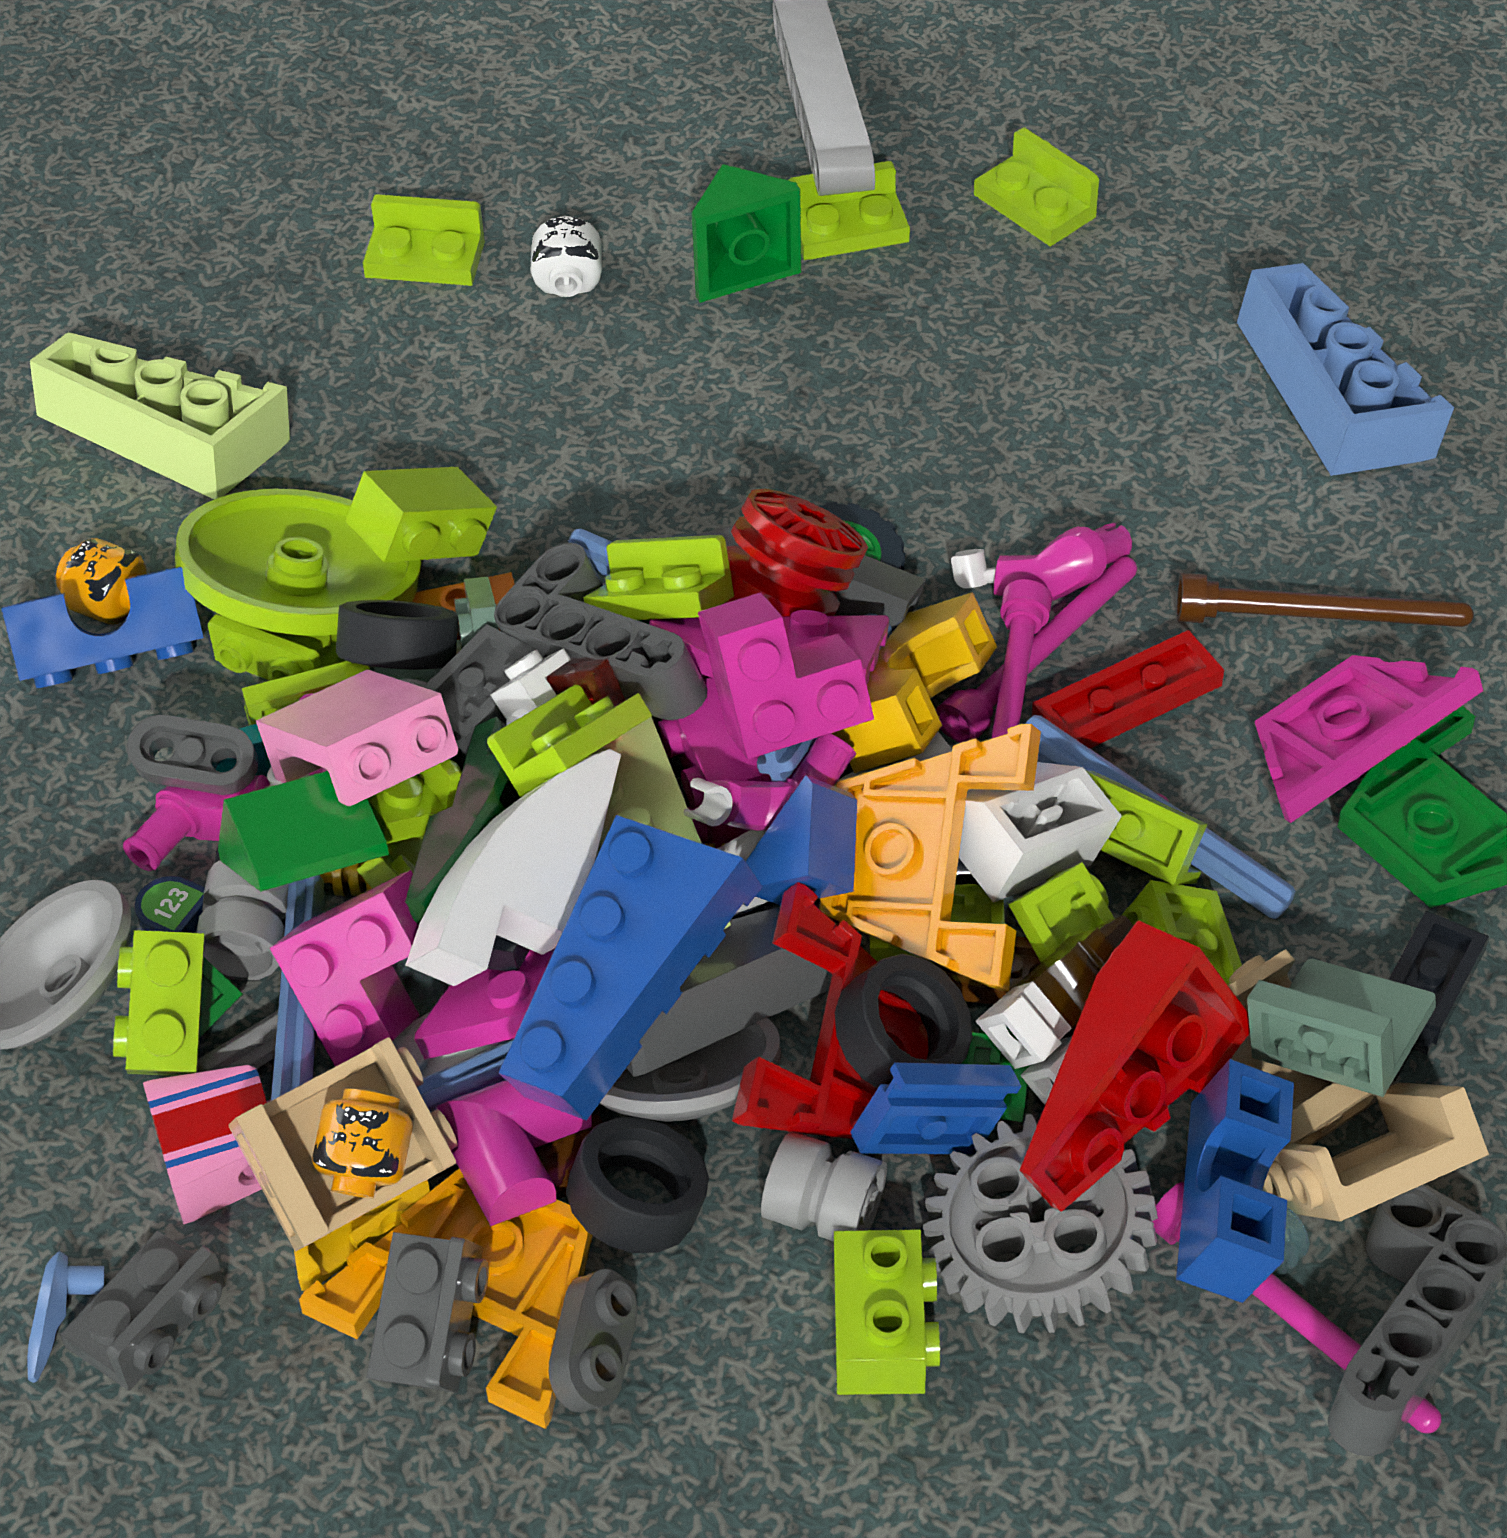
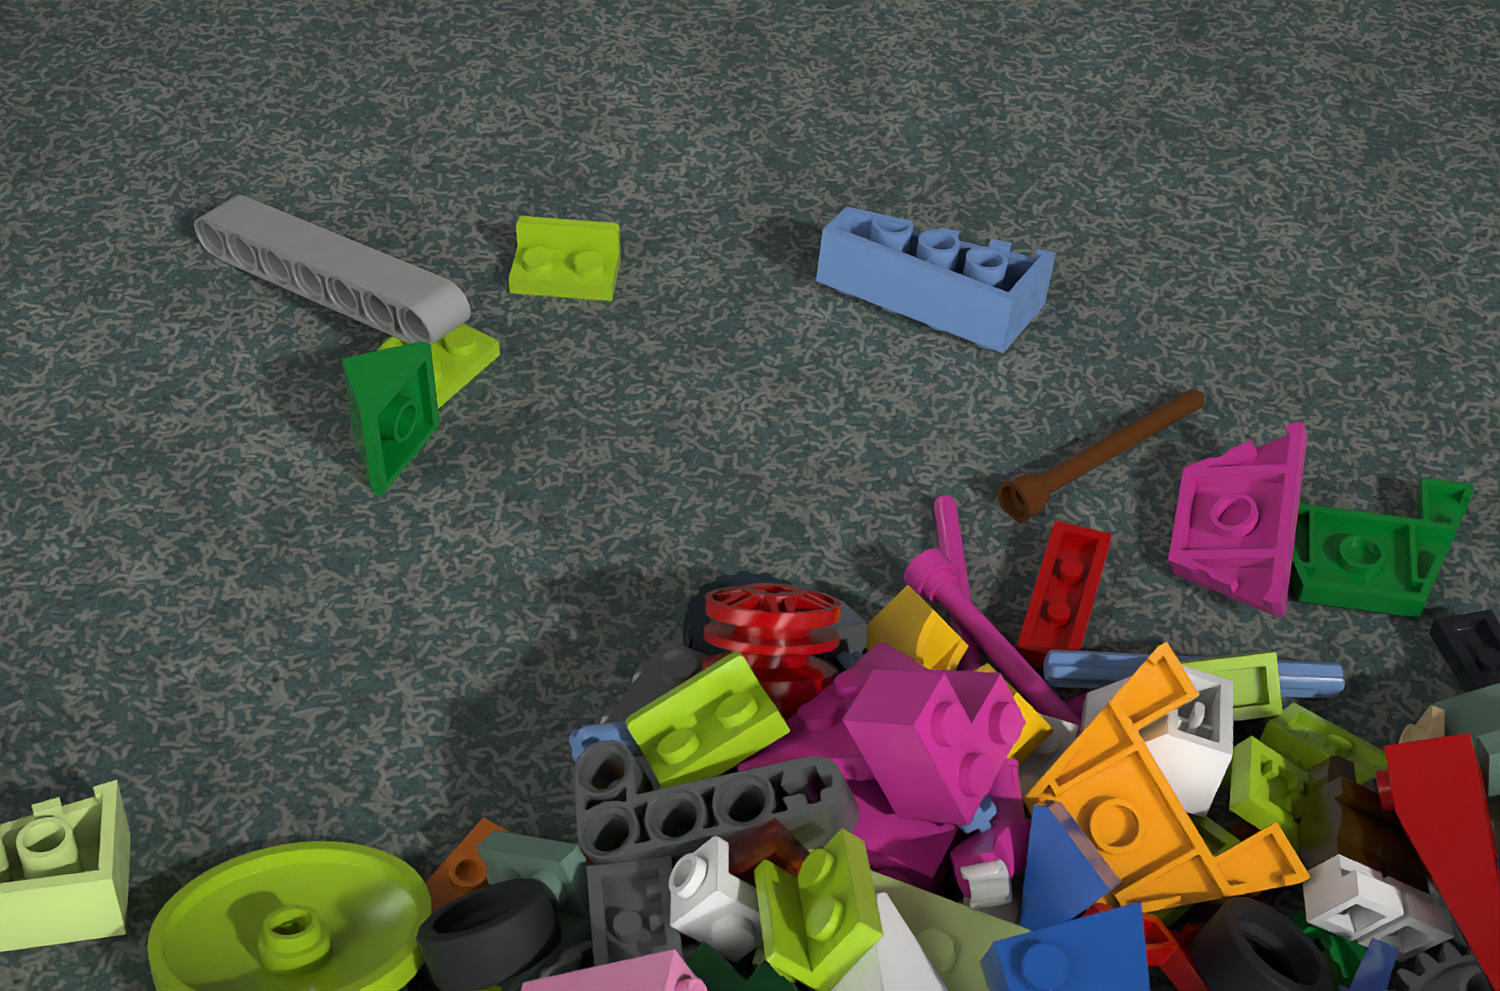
camera: 45 degrees left, 5 degrees down
(420, 514) = (366, 816): lime brick -> none
(424, 240) = (82, 579): lime bracket -> none
(566, 252) = (233, 517): white head -> none
(1062, 566) = (916, 527): dark pink arm -> none

